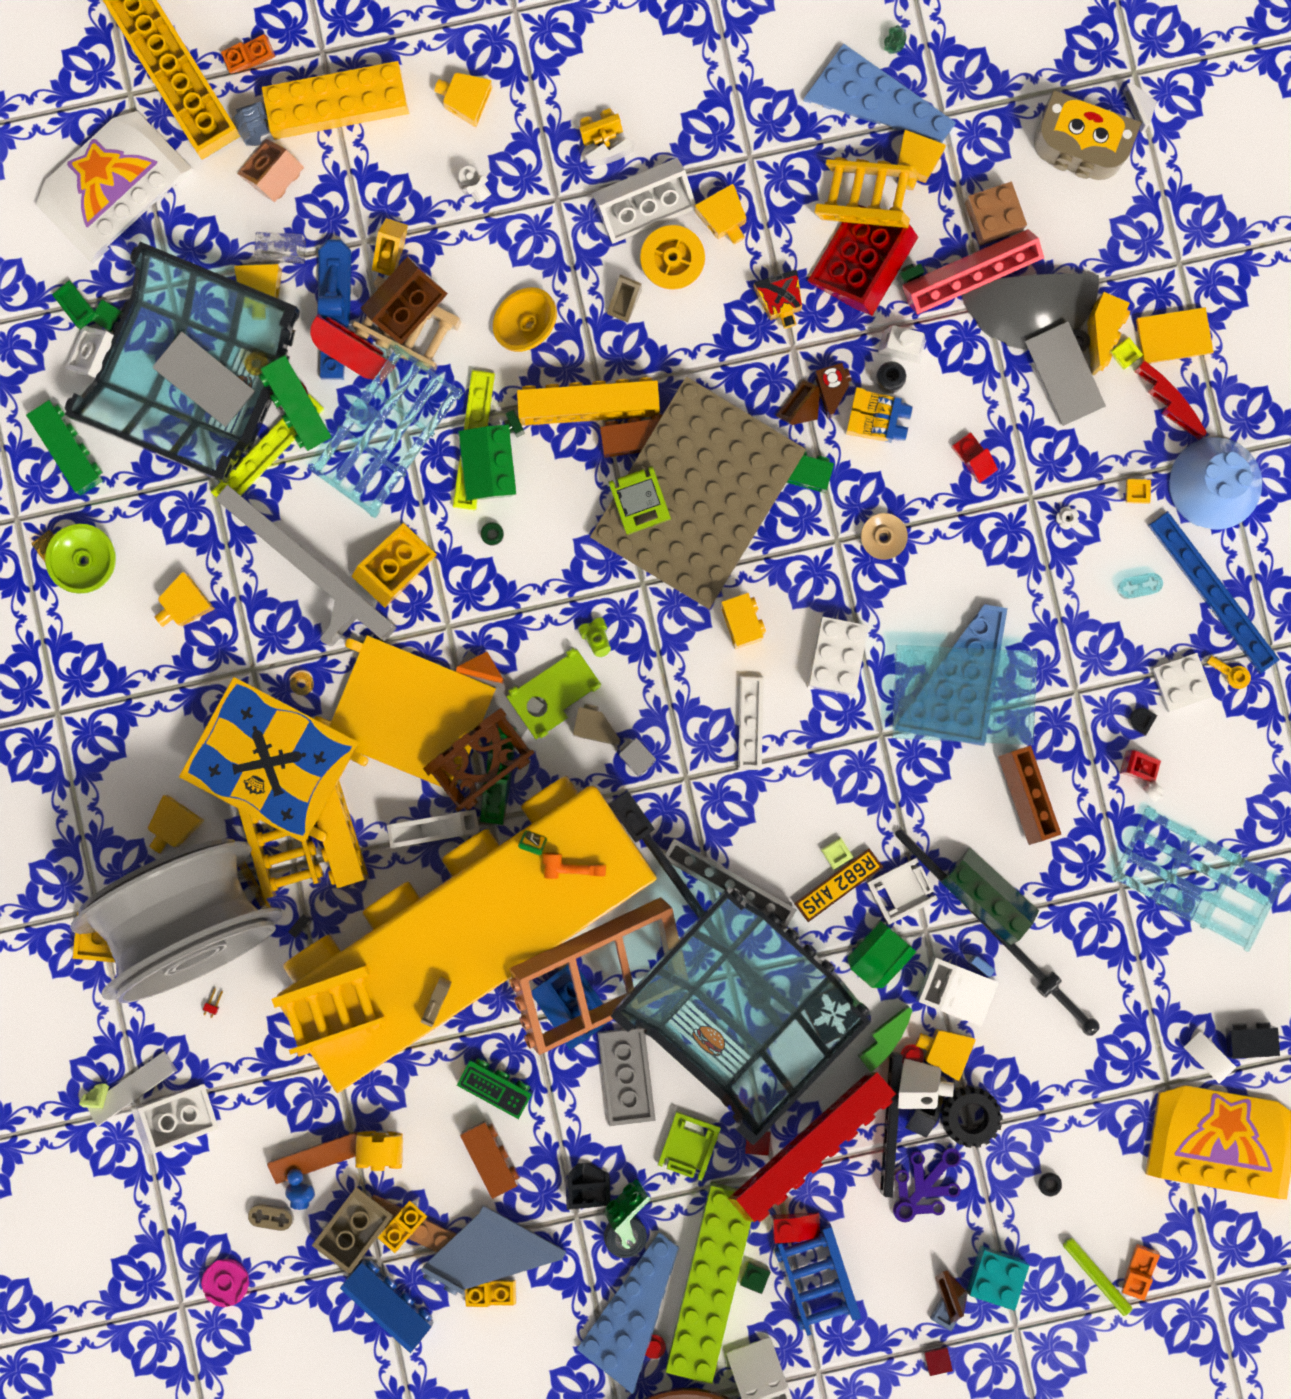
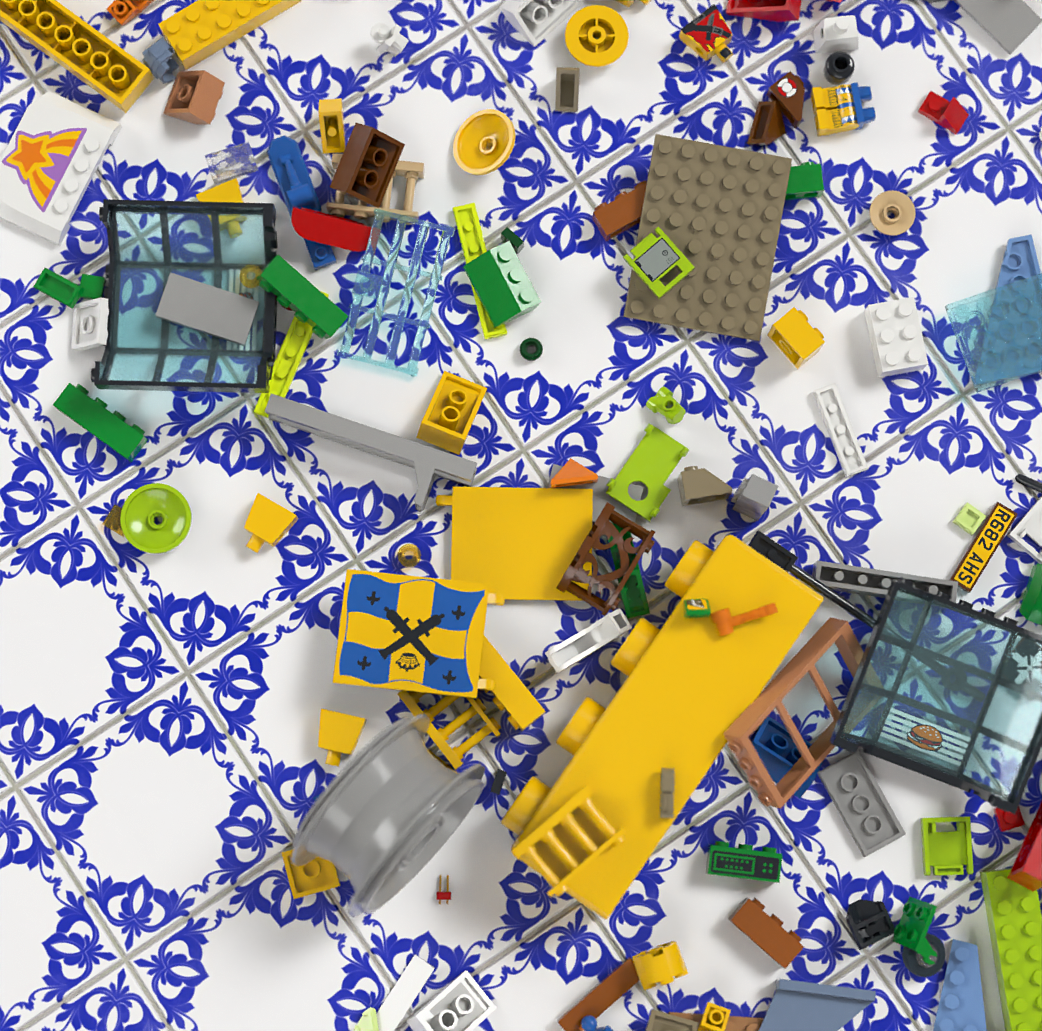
camera: 25 degrees left, 5 degrees down
(588, 402) = (574, 193): yellow brick -> none

